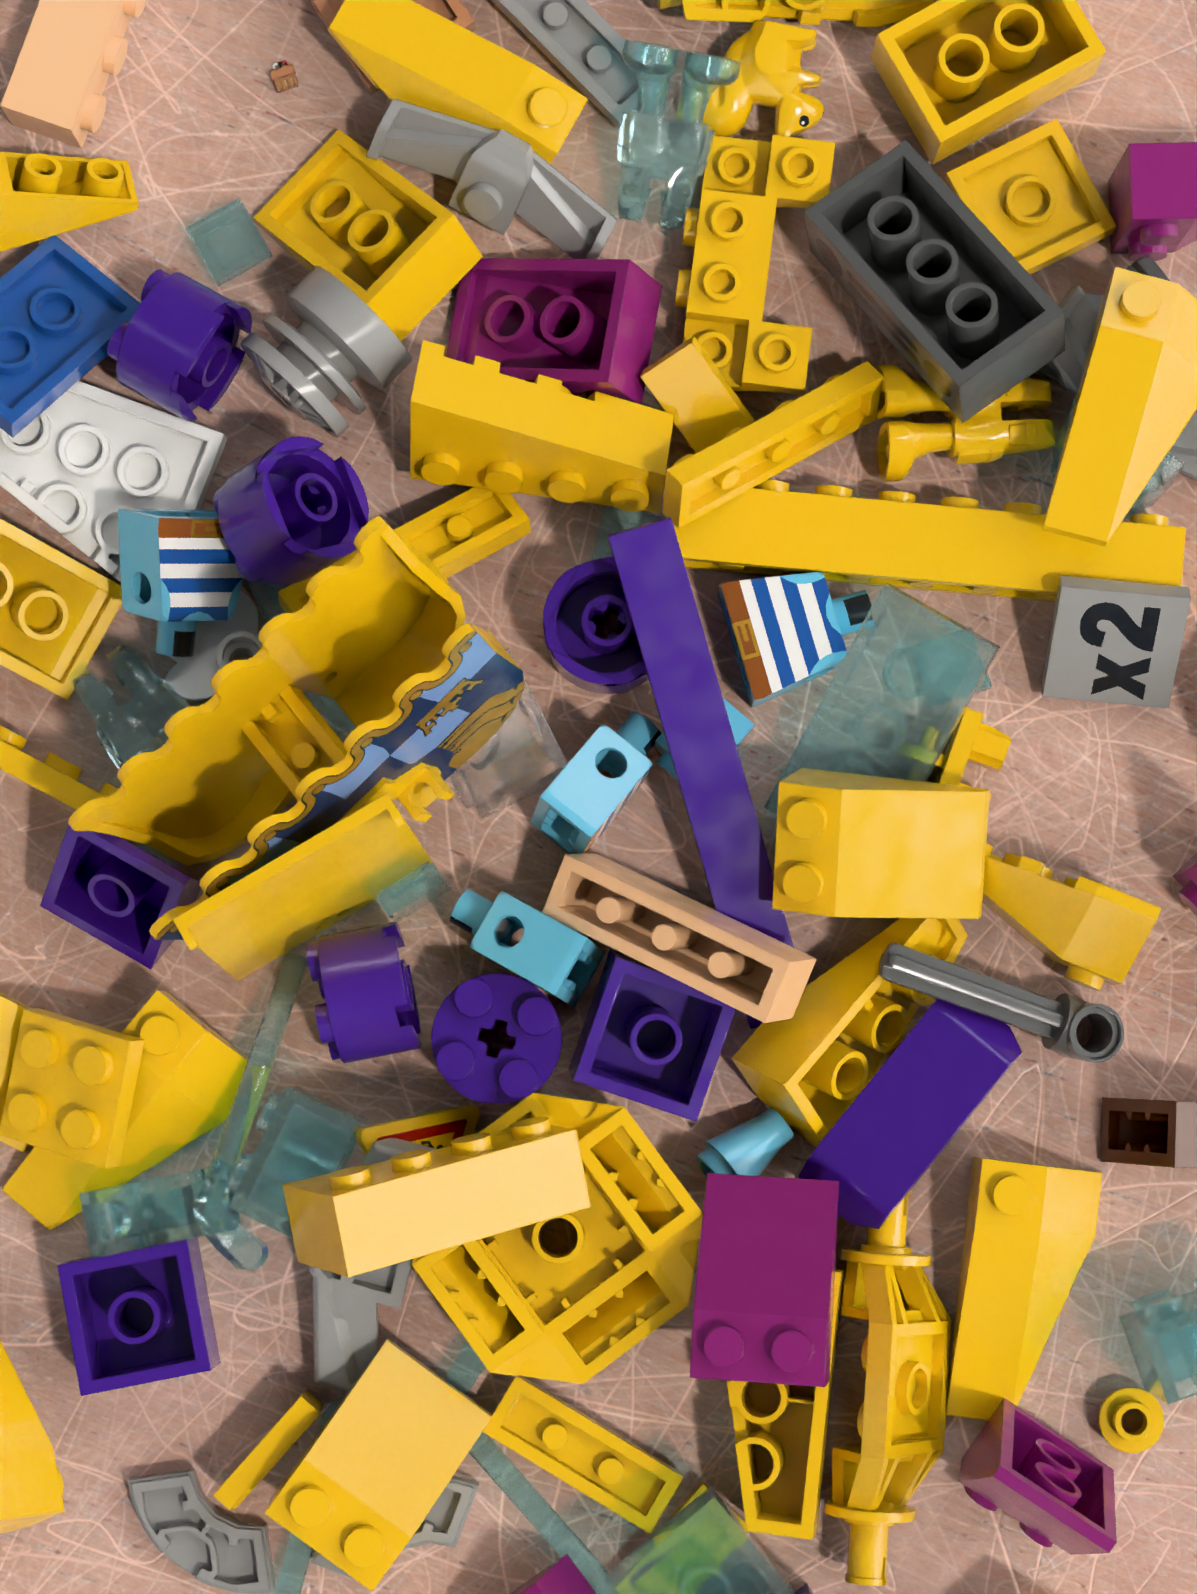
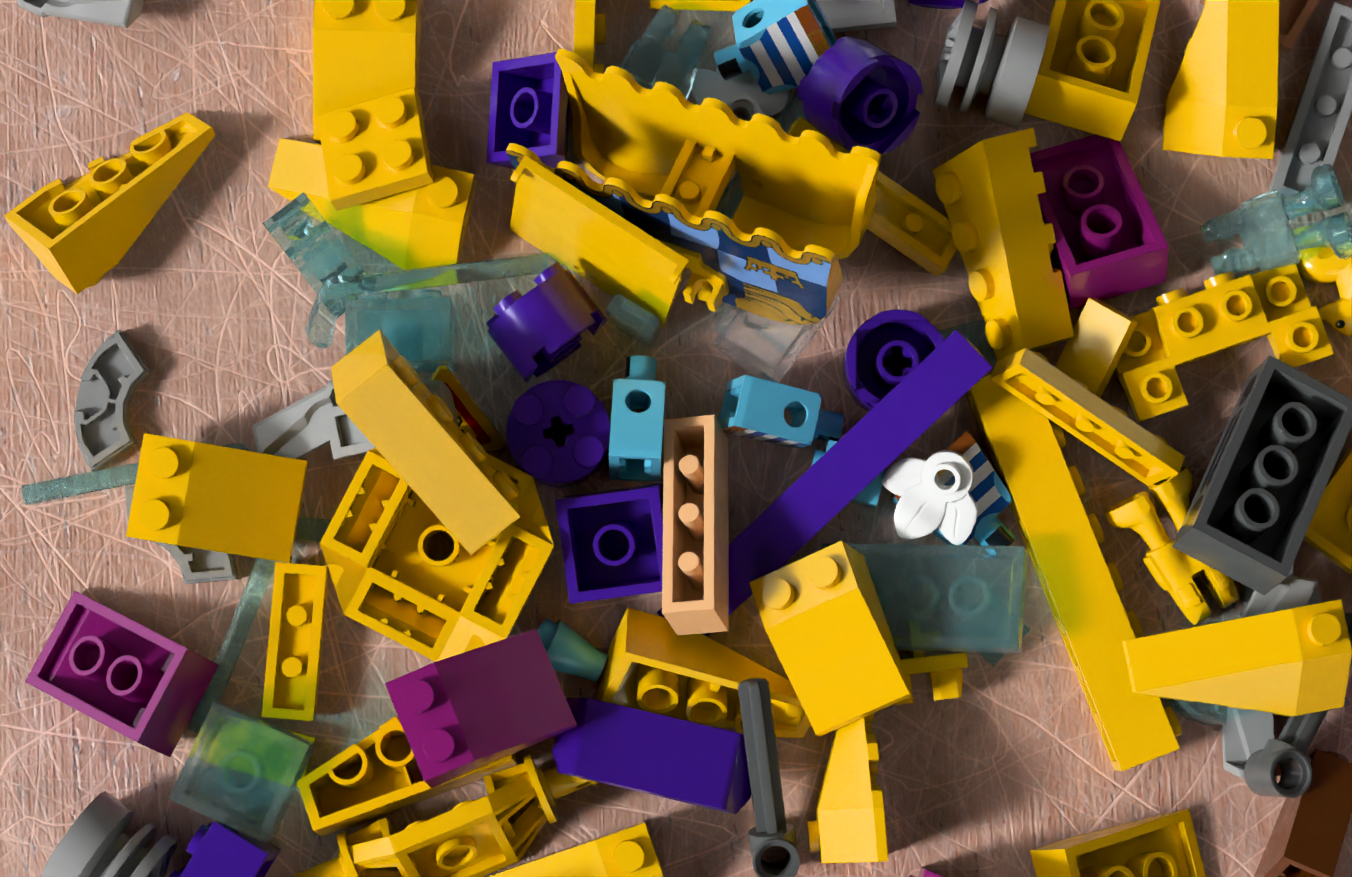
camera: 60 degrees right, 0 degrees up
(139, 1316) = (238, 278): dark purple brick -> none
(269, 1450) = (189, 418): yellow tile -> none
(494, 176) = (1181, 121): light grey plate -> none
(780, 666) = (928, 502): none -> white plate
(1115, 641) = (1070, 738): light grey tile -> none

